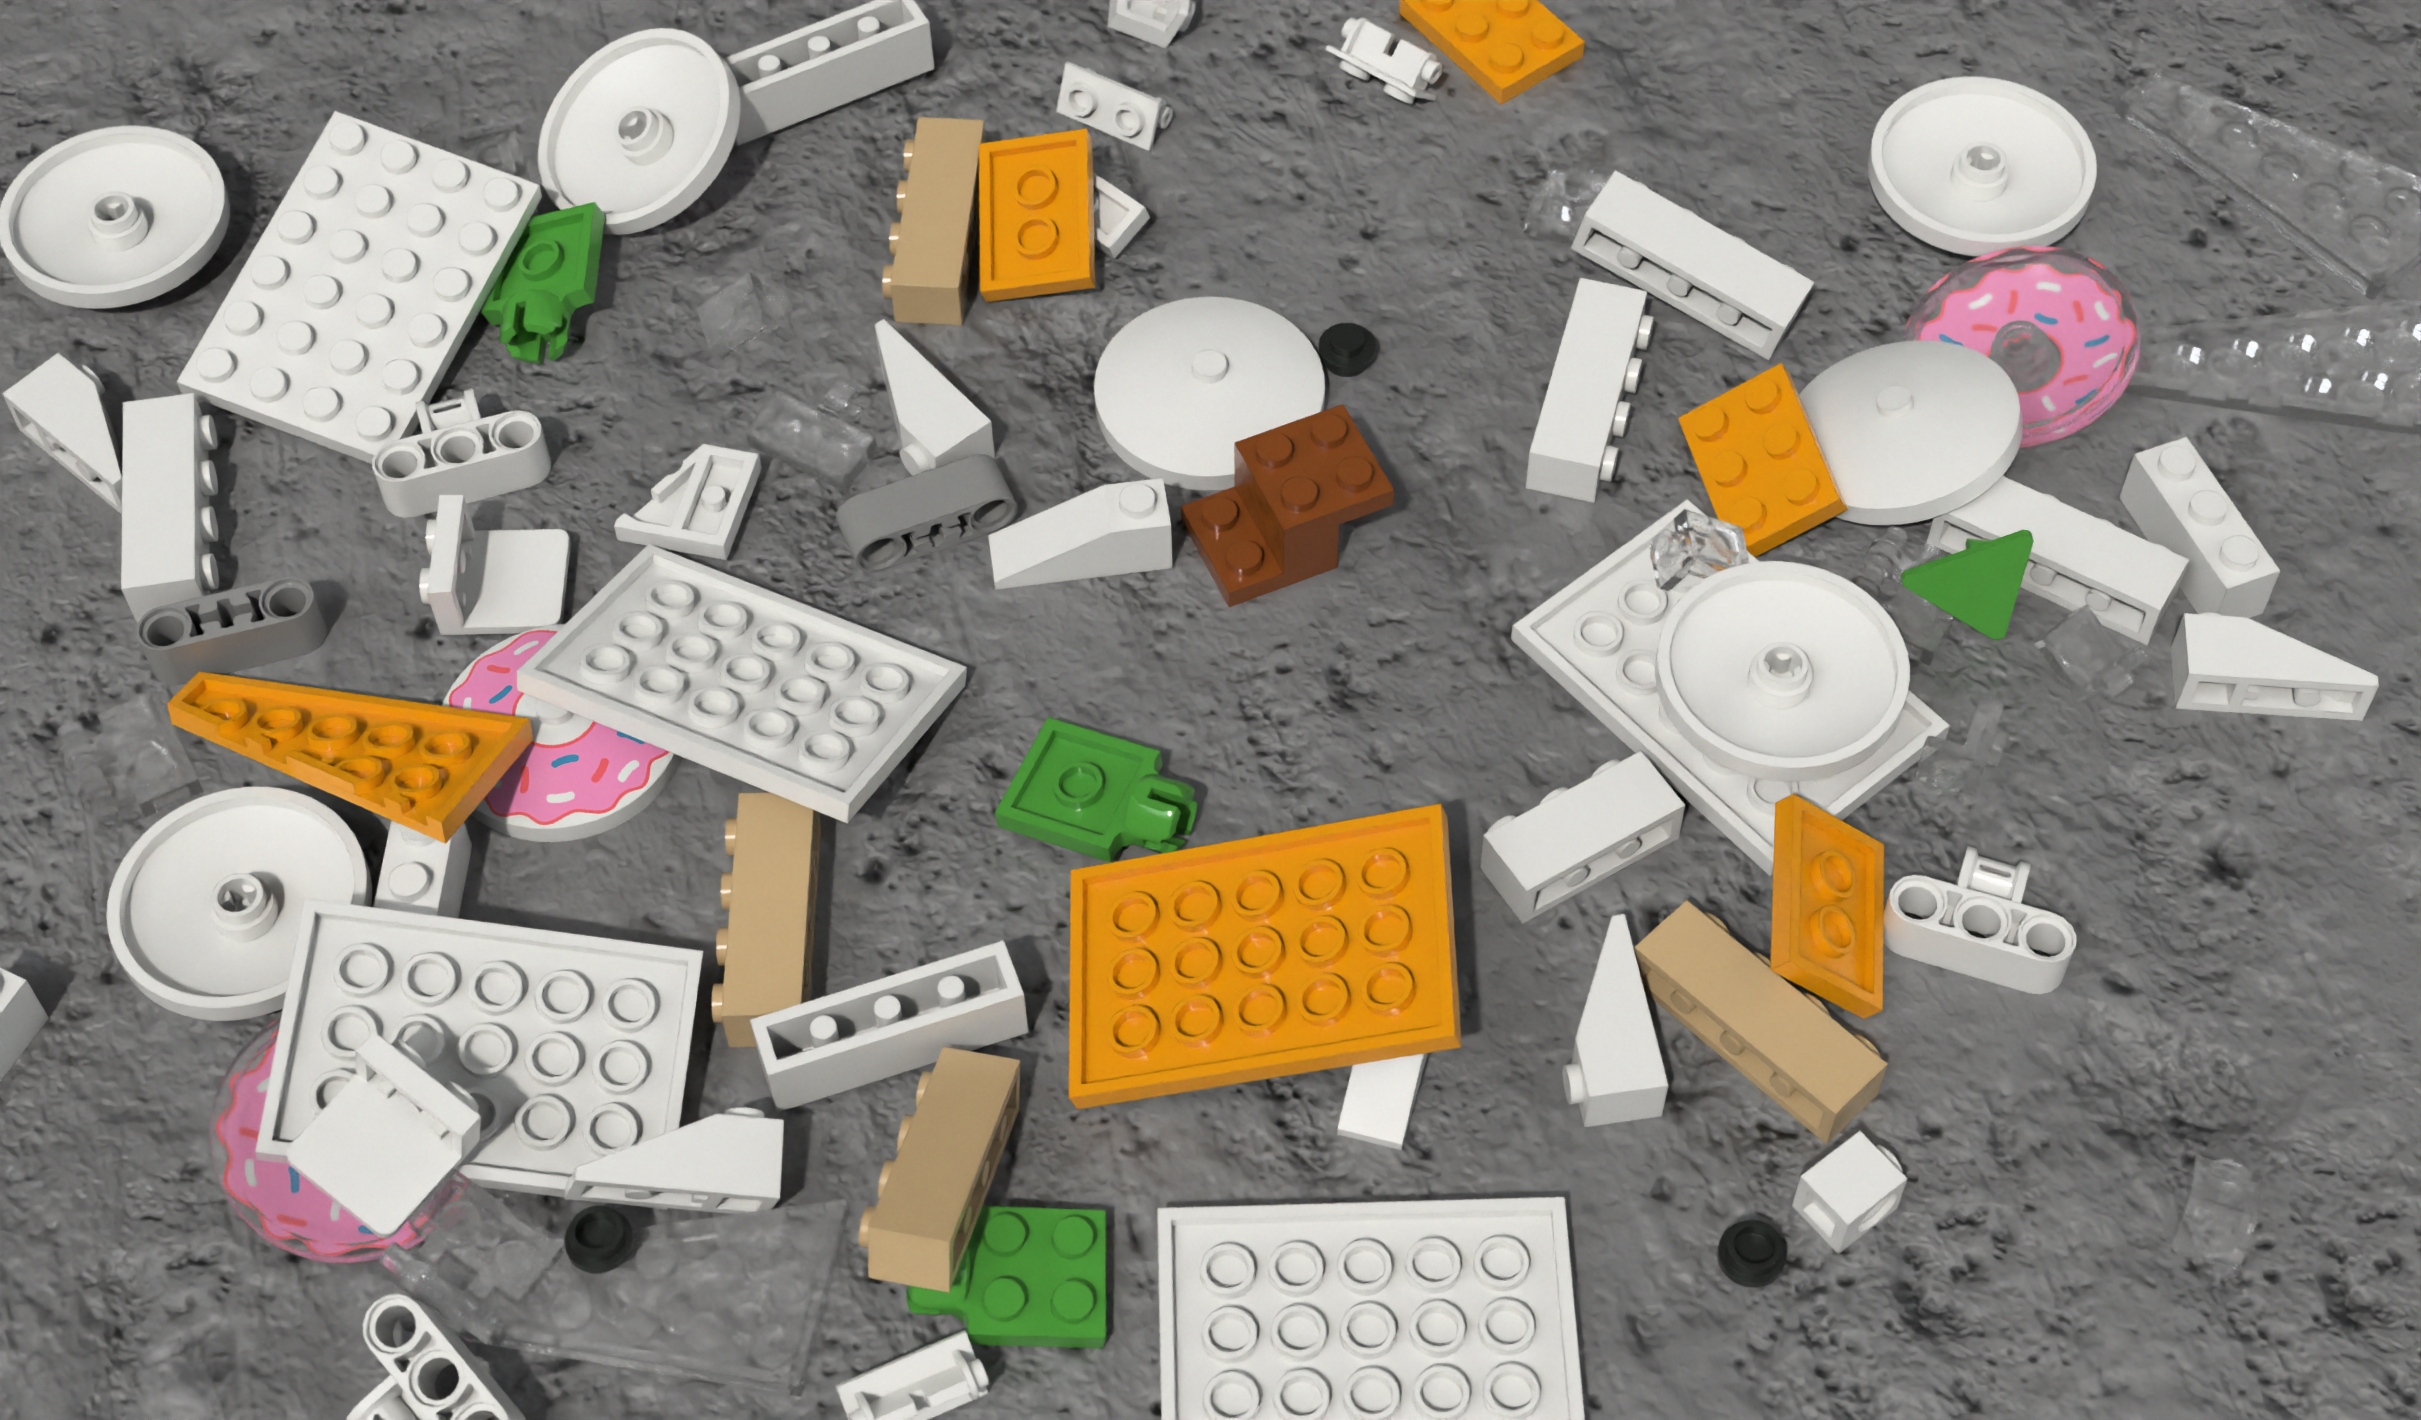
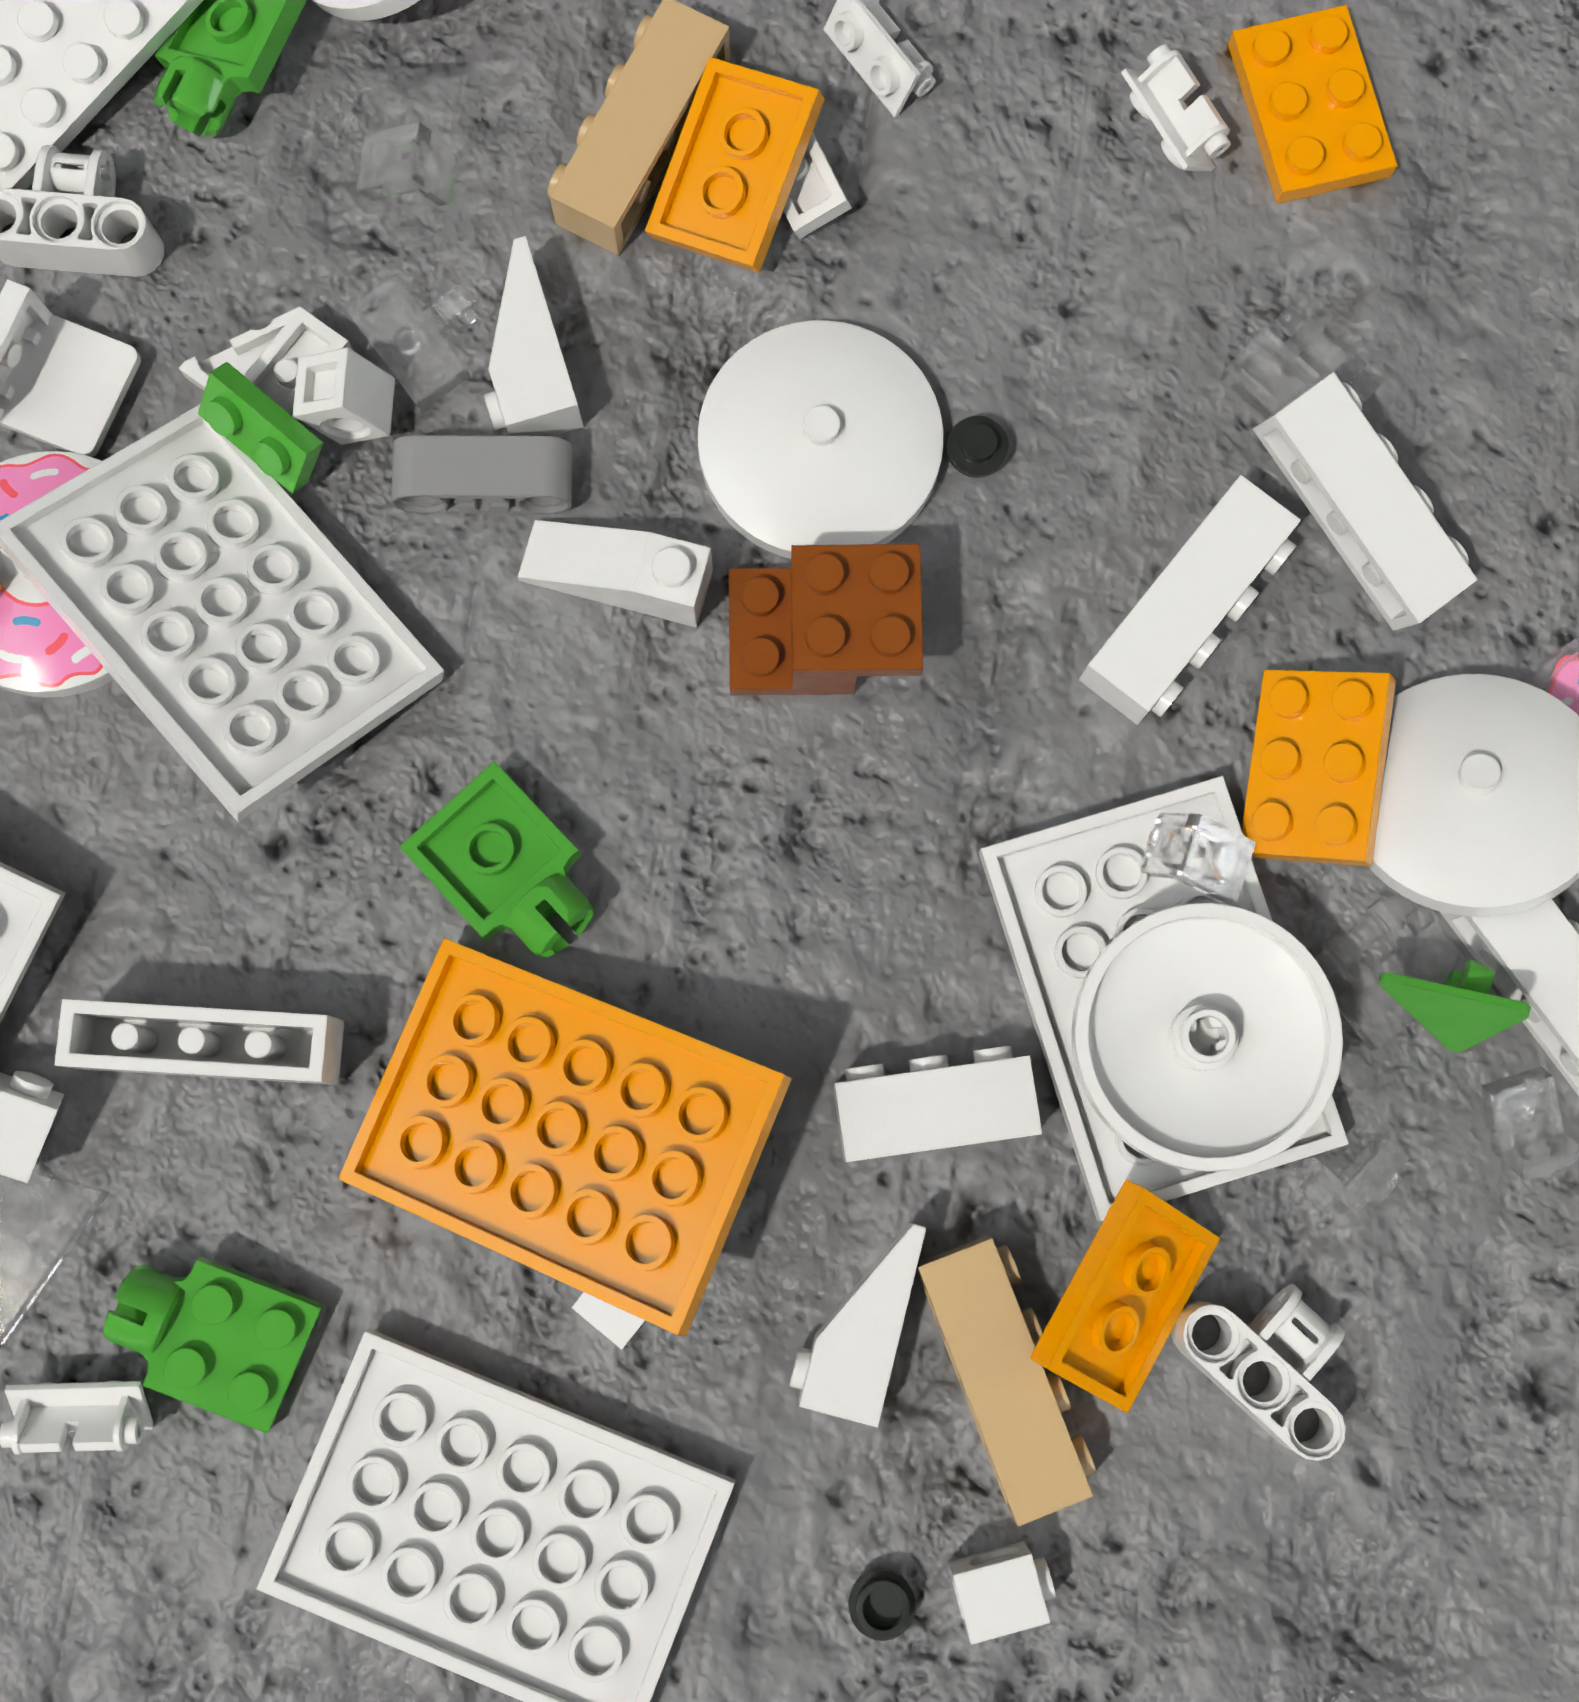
camera: 20 degrees right, 25 degrees up
(714, 537) = (259, 427): none -> bright green plate
(770, 912) = (143, 881): tan brick -> none
(779, 489) = (343, 396): none -> white brick
(941, 1169) = (175, 1226): tan brick -> none

